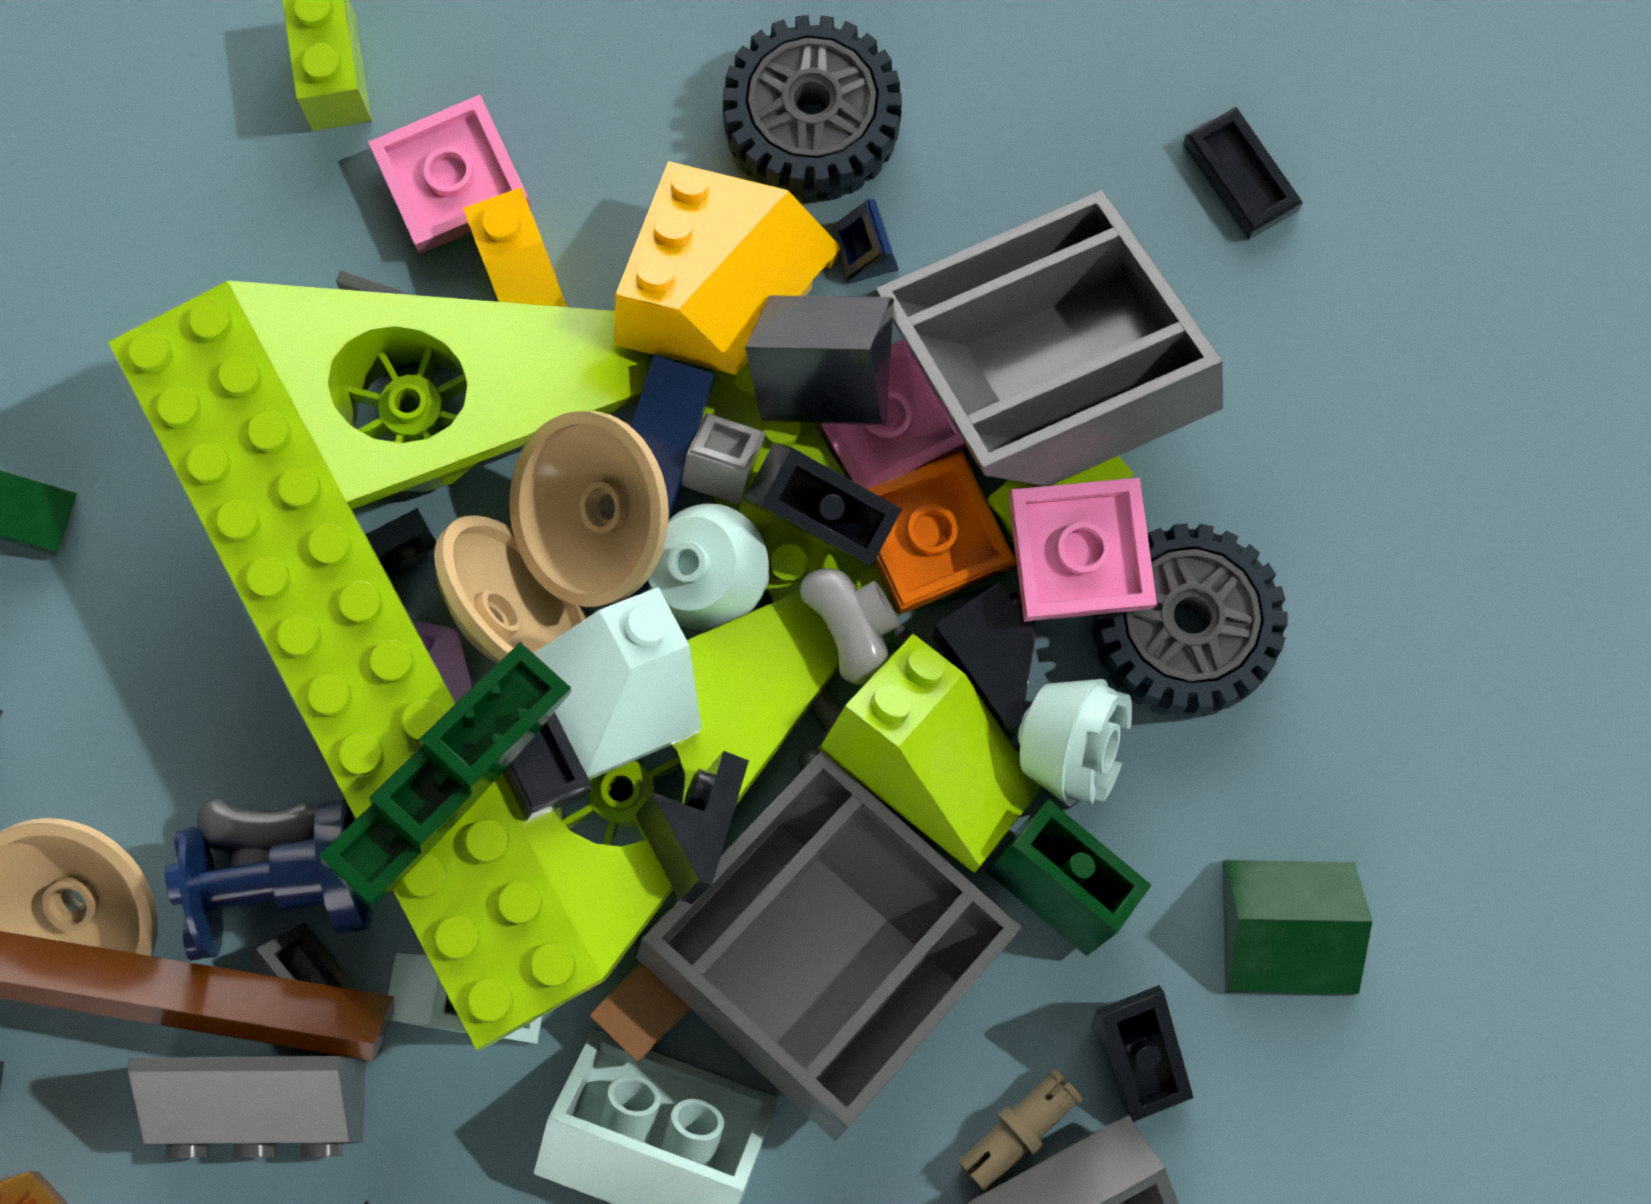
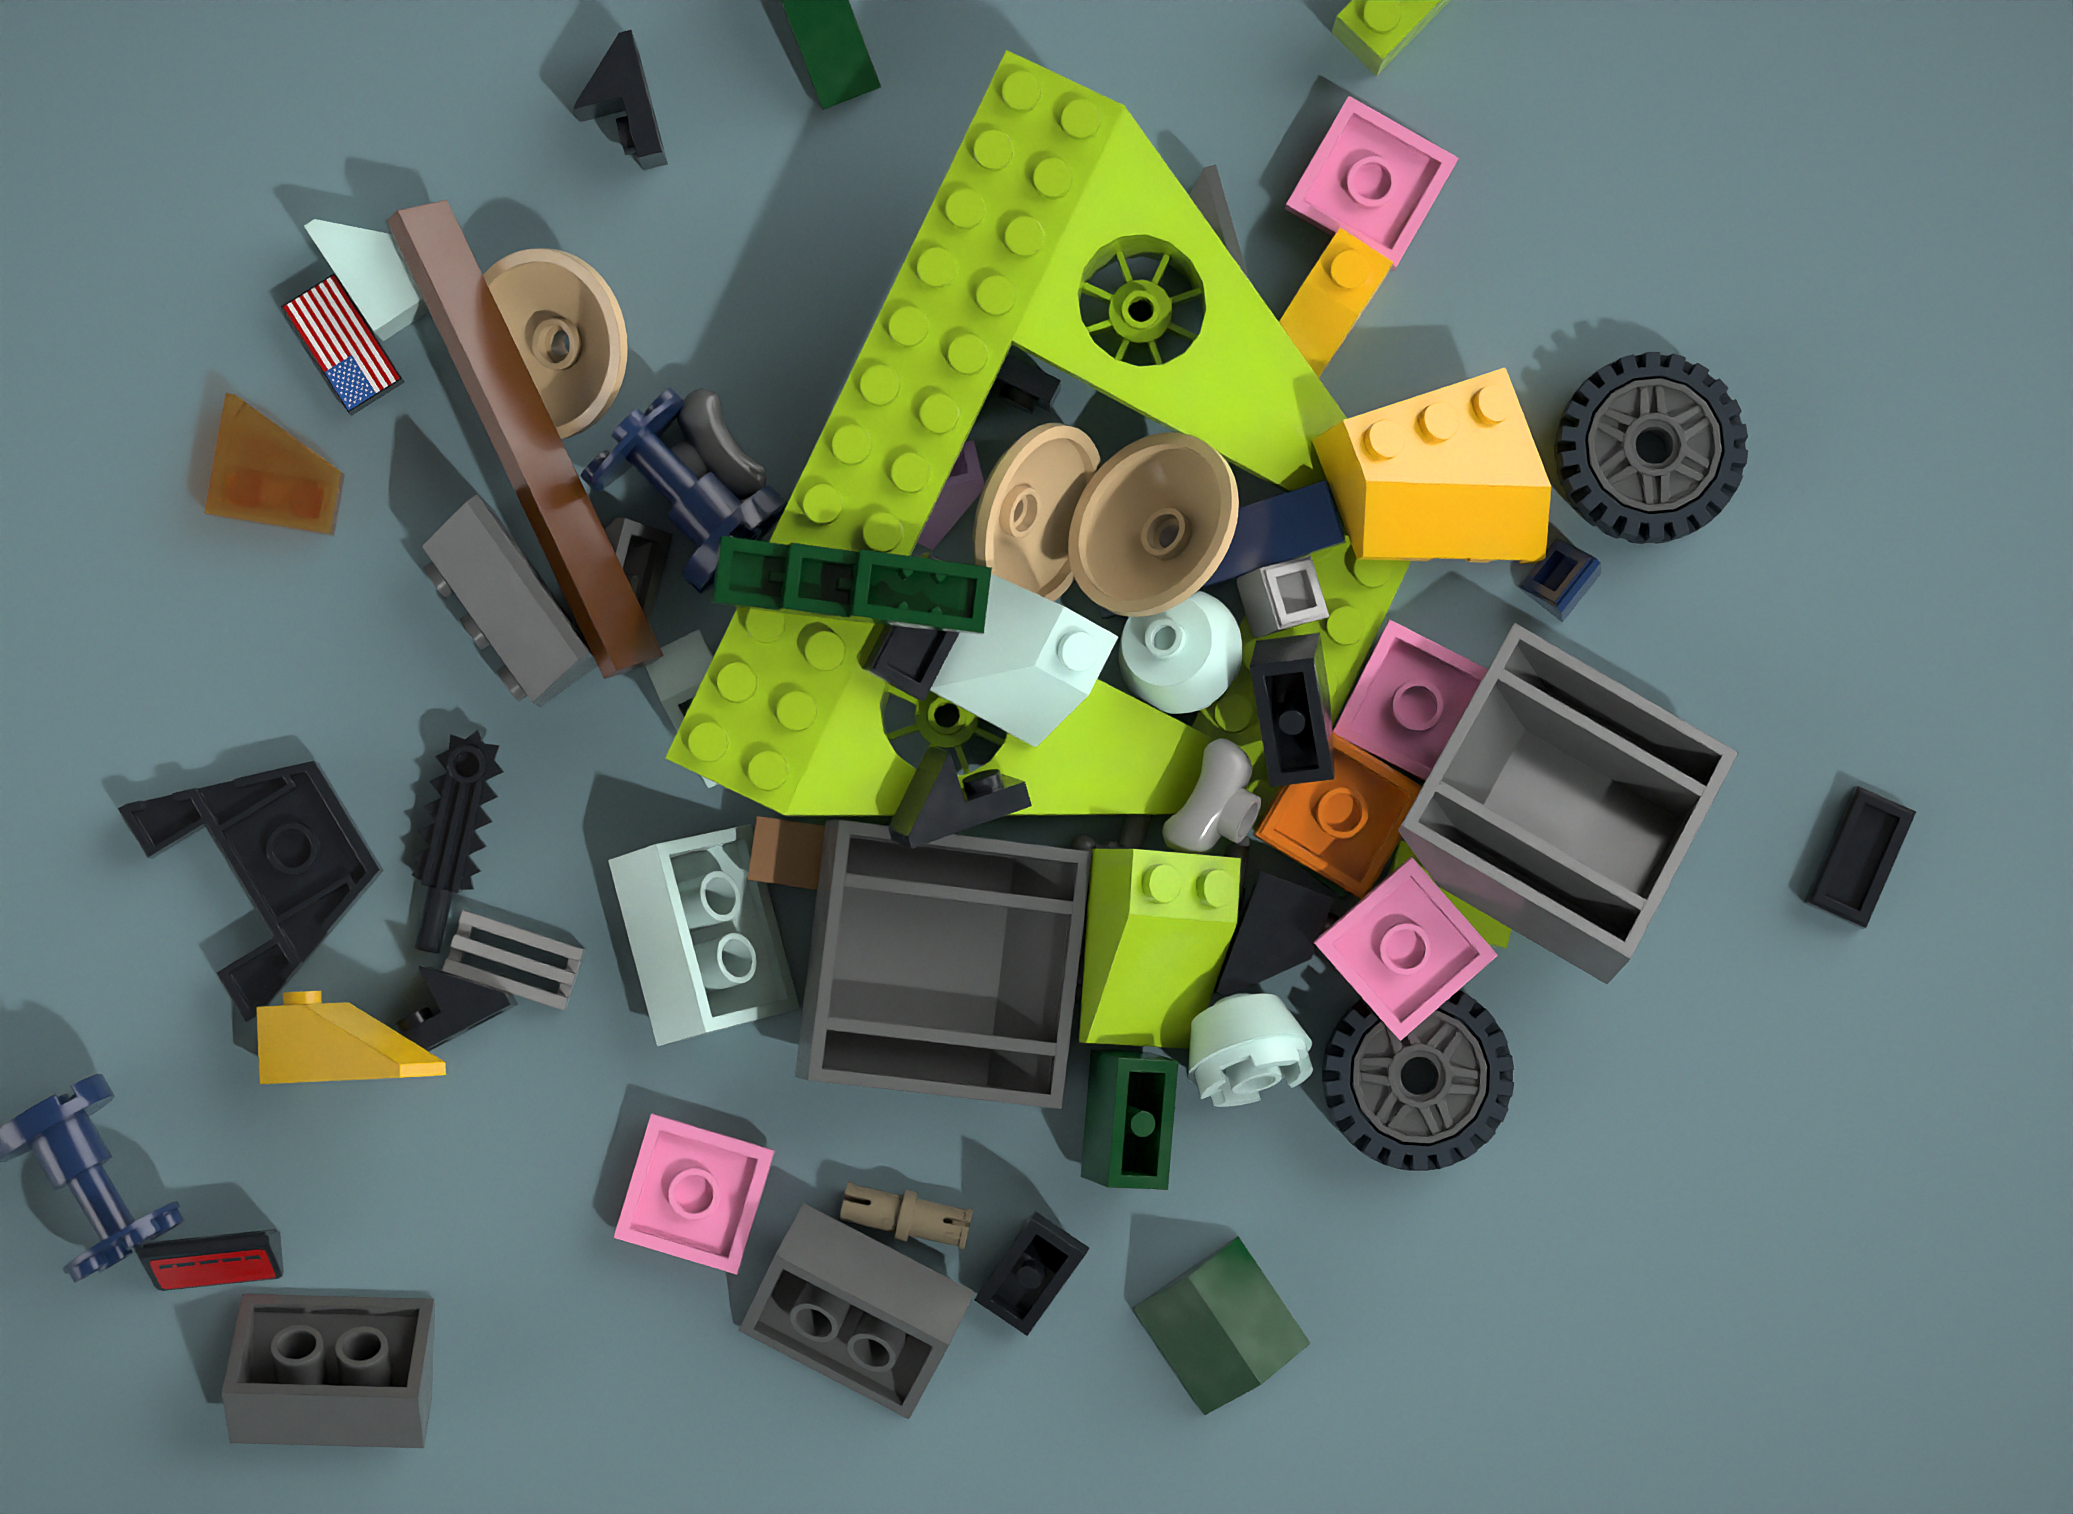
camera: 55 degrees right, 10 degrees up
(822, 359) = (1420, 621): black slope -> none

